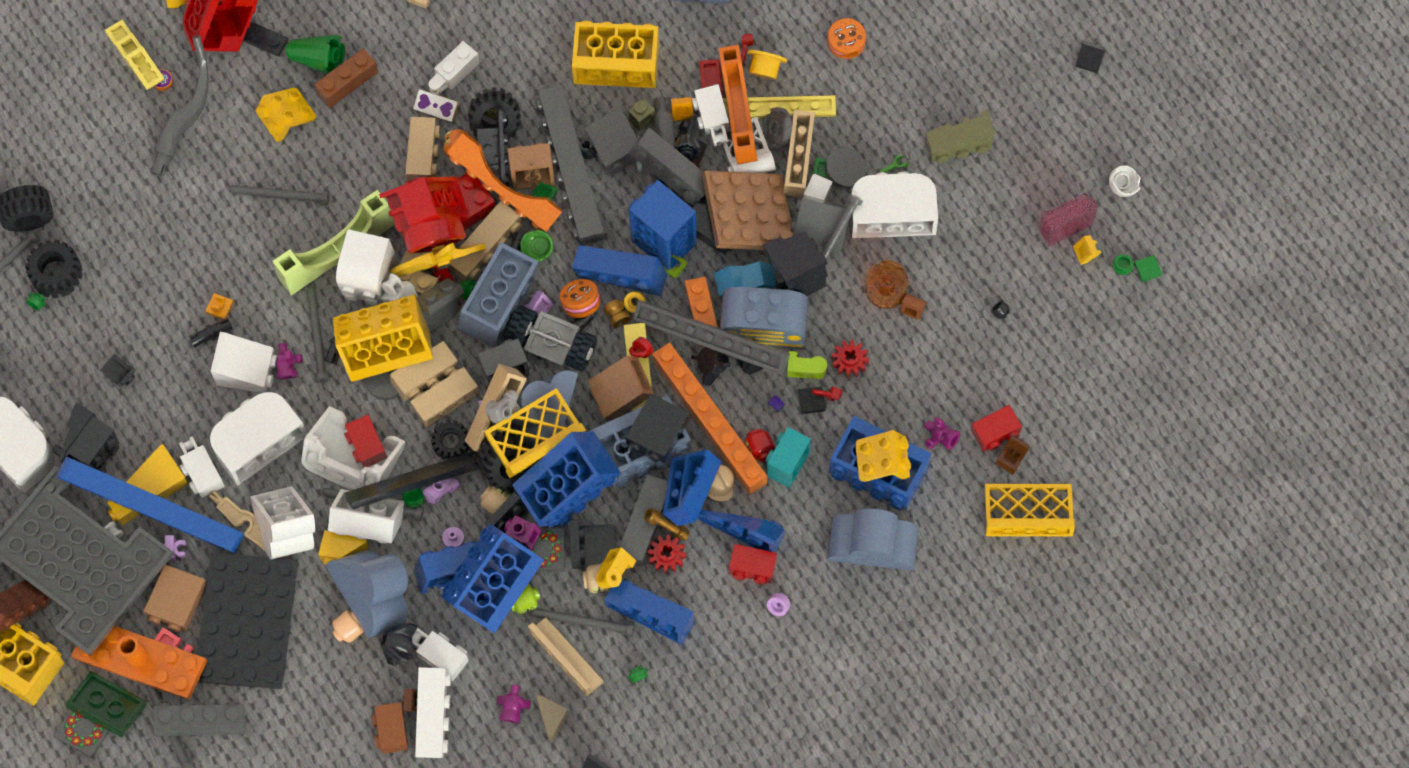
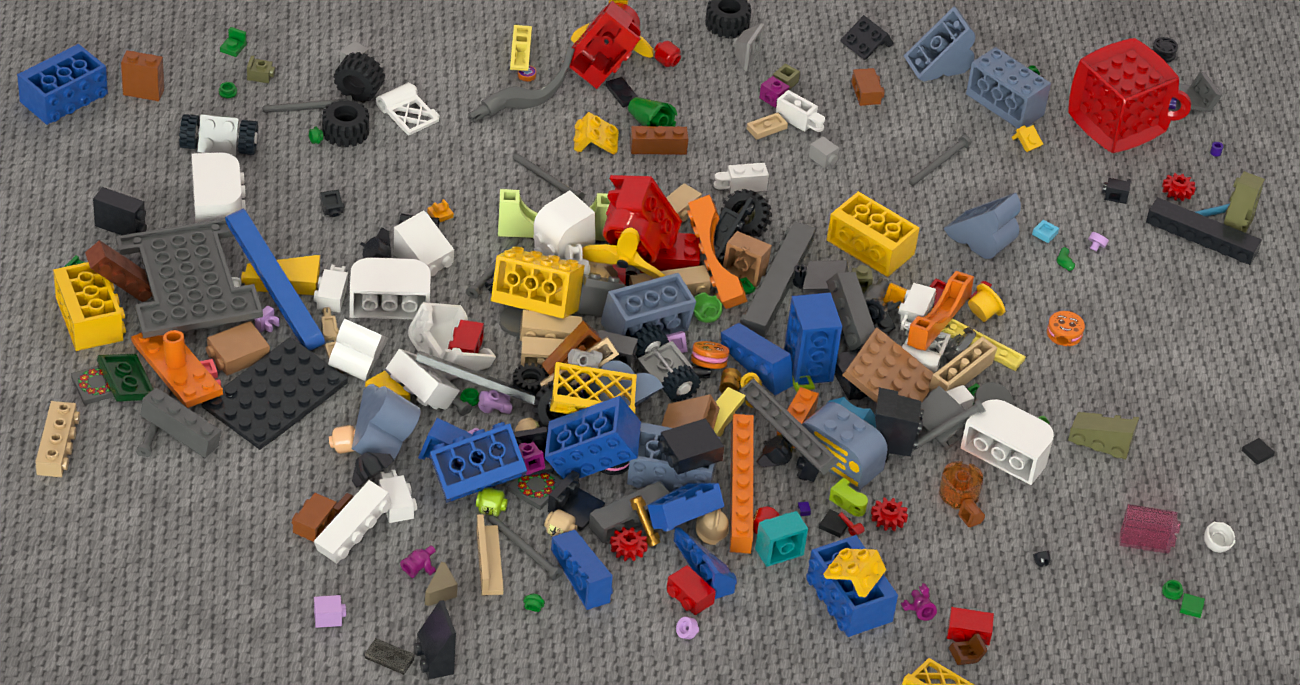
camera: 30 degrees right, 25 degrees down
(75, 201) = (400, 100): none -> white piece
(88, 440) = (272, 217): black piece -> none
(204, 398) = (378, 246): none -> black piece
(285, 363) = (455, 267): magenta piece -> none
(436, 105) = (707, 186): white tile -> none
(471, 389) = (580, 338): none -> dark orange brick
(613, 567) = (570, 519): yellow leg -> none
(641, 348) = (727, 403): red tile -> none
(873, 539) = (804, 633): sand blue brick -> none
(1086, 249) = (1149, 562): yellow tile -> none

